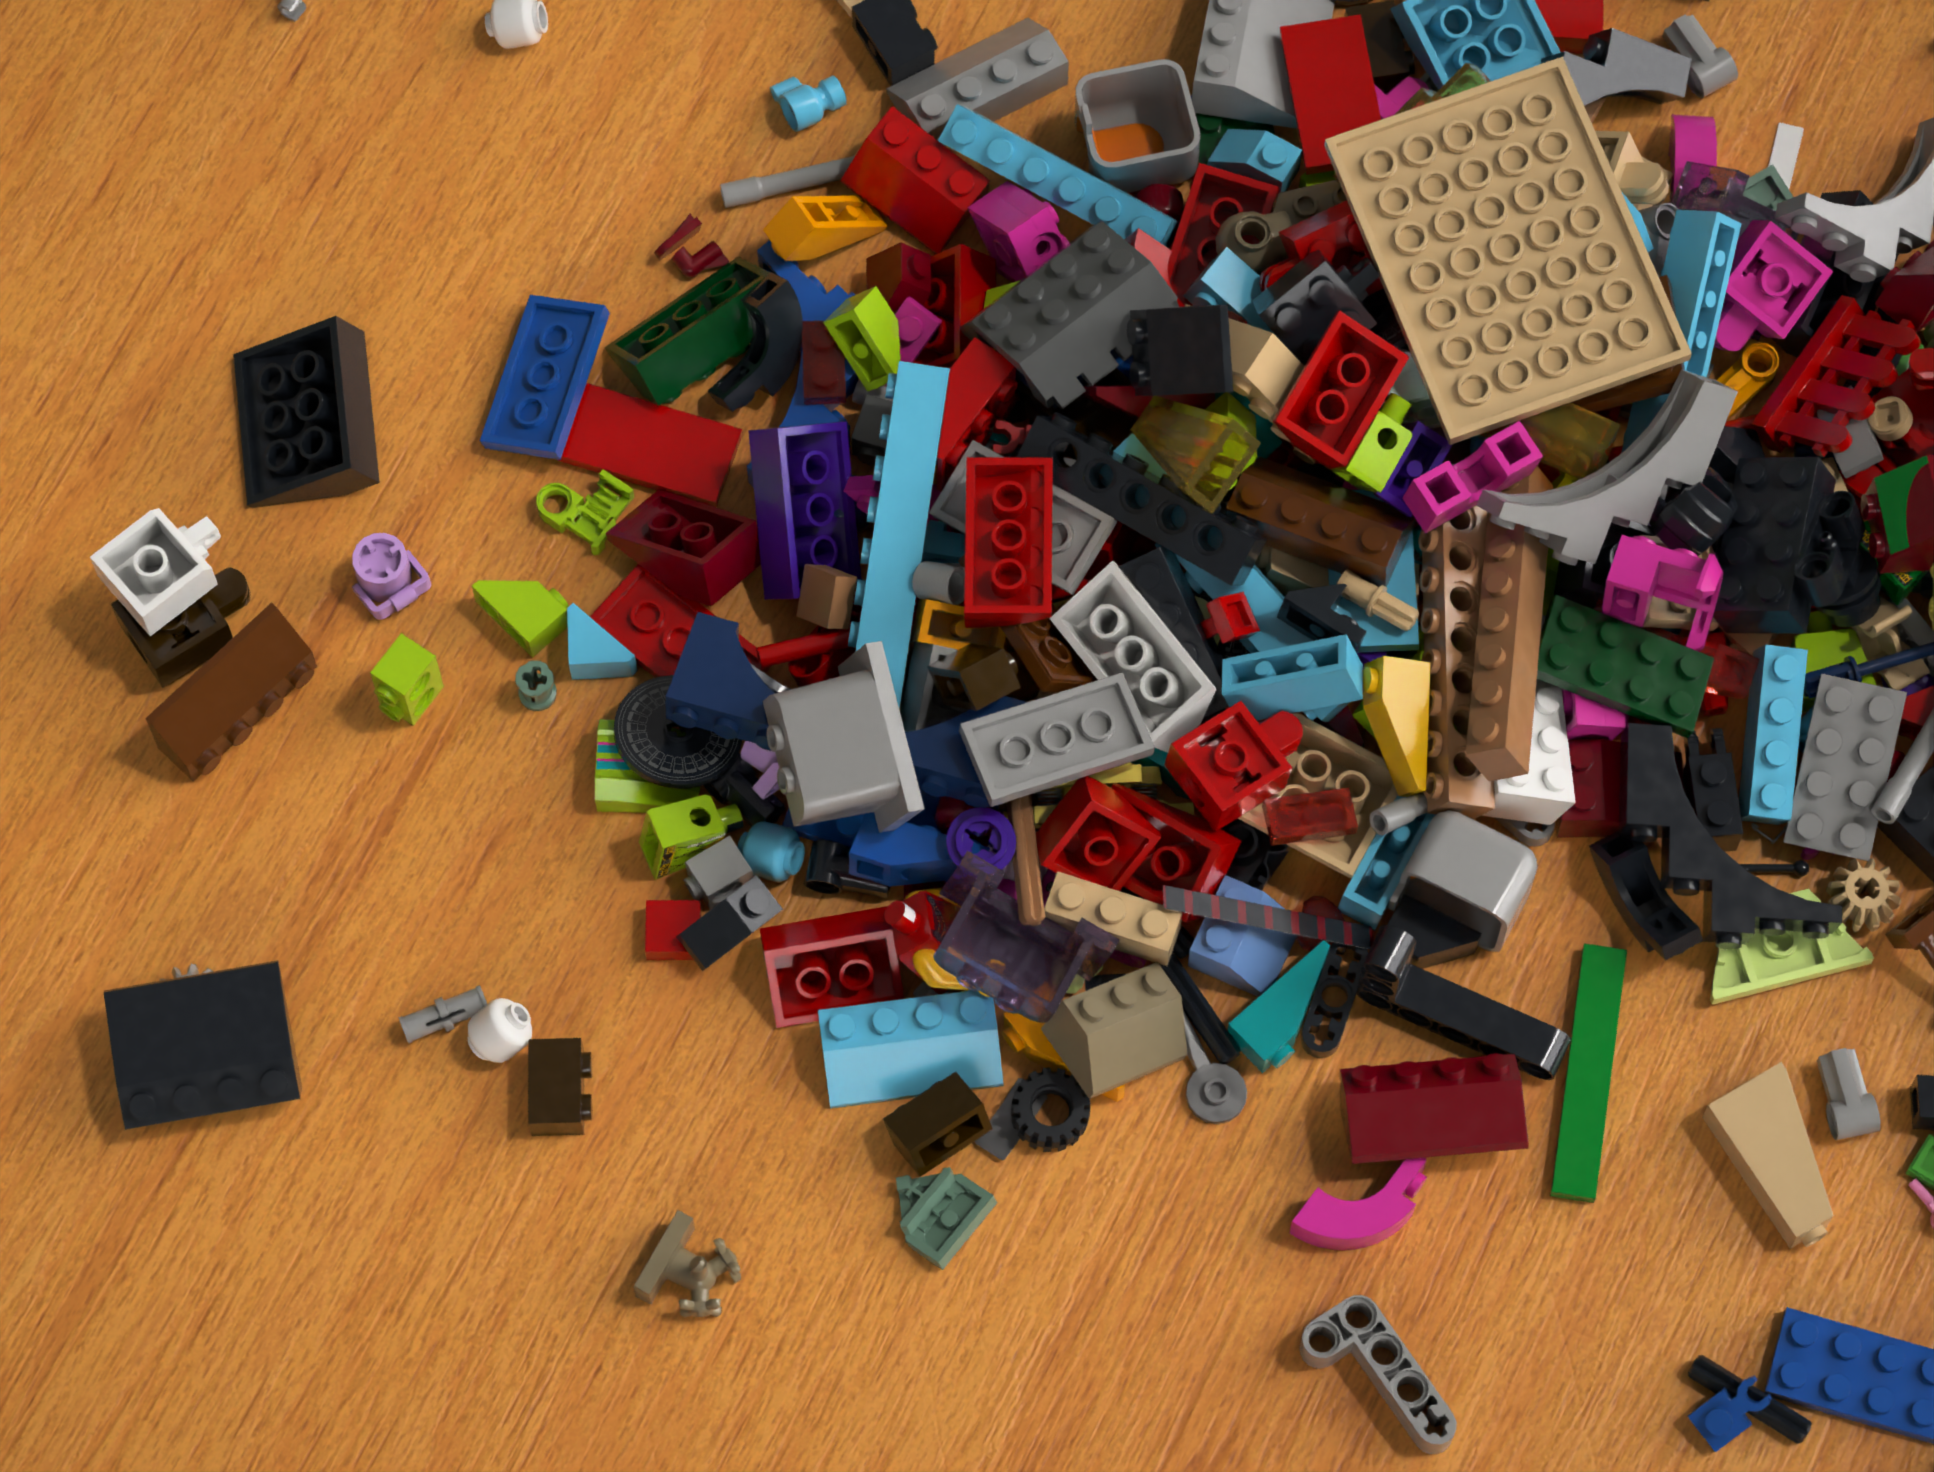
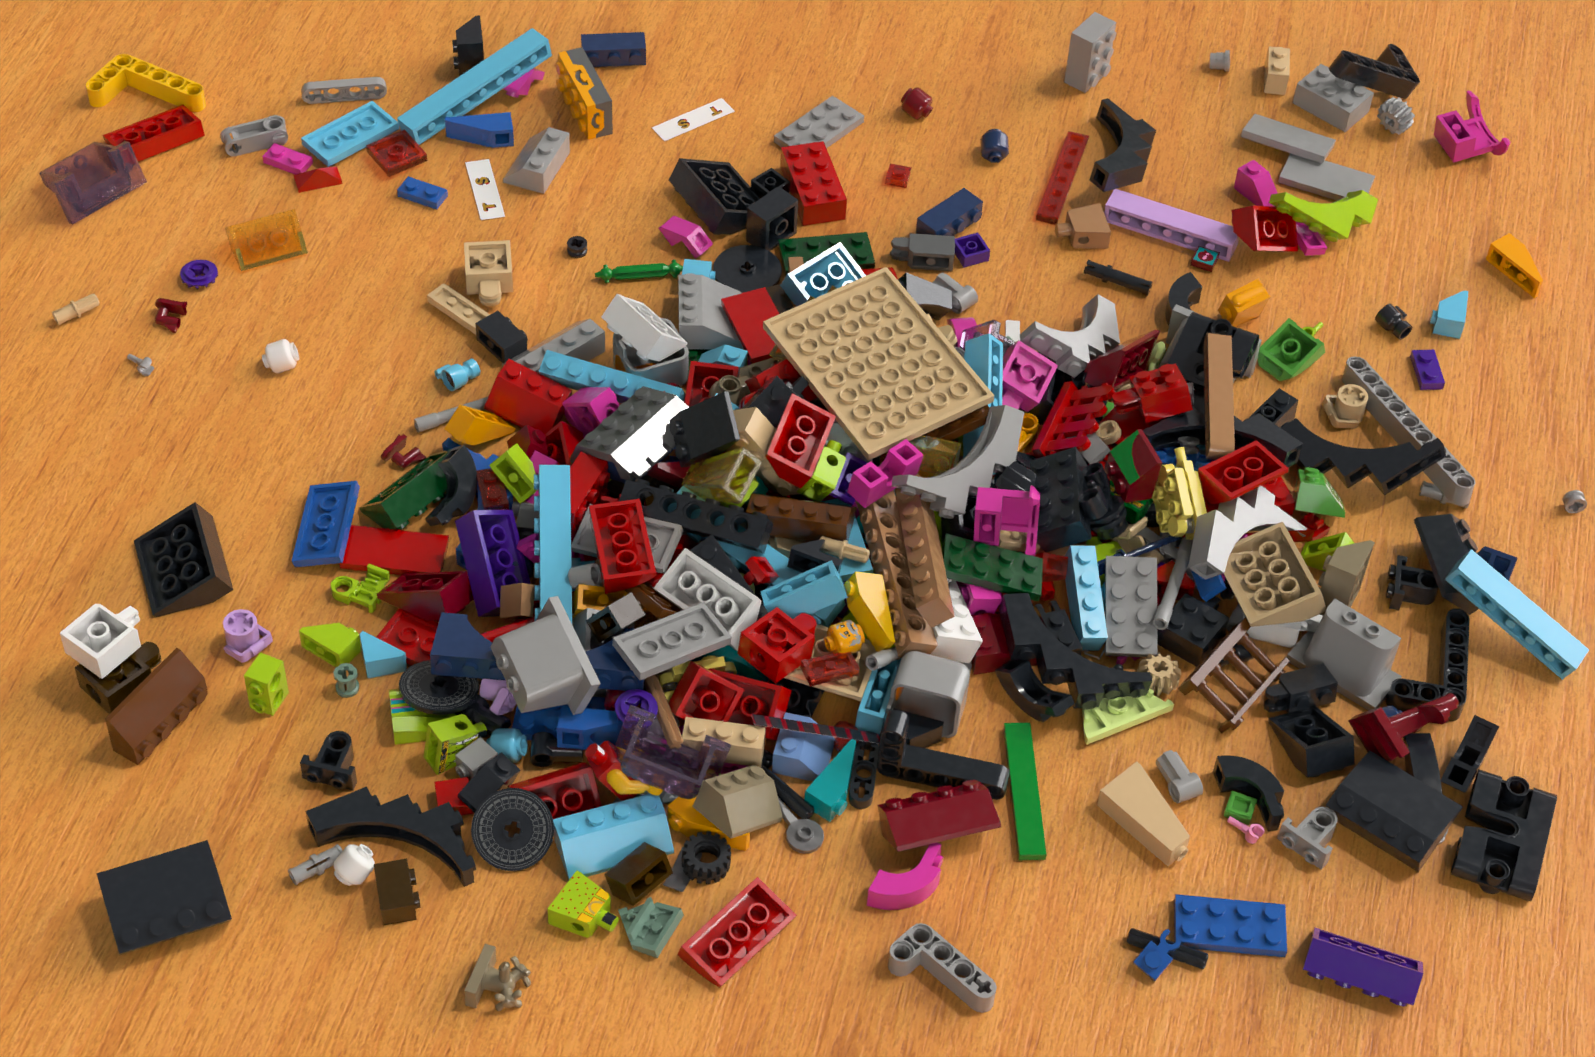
camera: 15 degrees left, 20 degrees down
(492, 840) = (332, 763): none -> black pin
(519, 941) = (400, 819): none -> black arch
(785, 1001) = (494, 841): none -> black piece
(840, 1166) = (582, 907): none -> lime torso
(1074, 1252) = (736, 933): none -> red slope
(1128, 86) = (642, 329): none -> white slope
(1345, 764) = (844, 637): none -> light orange head

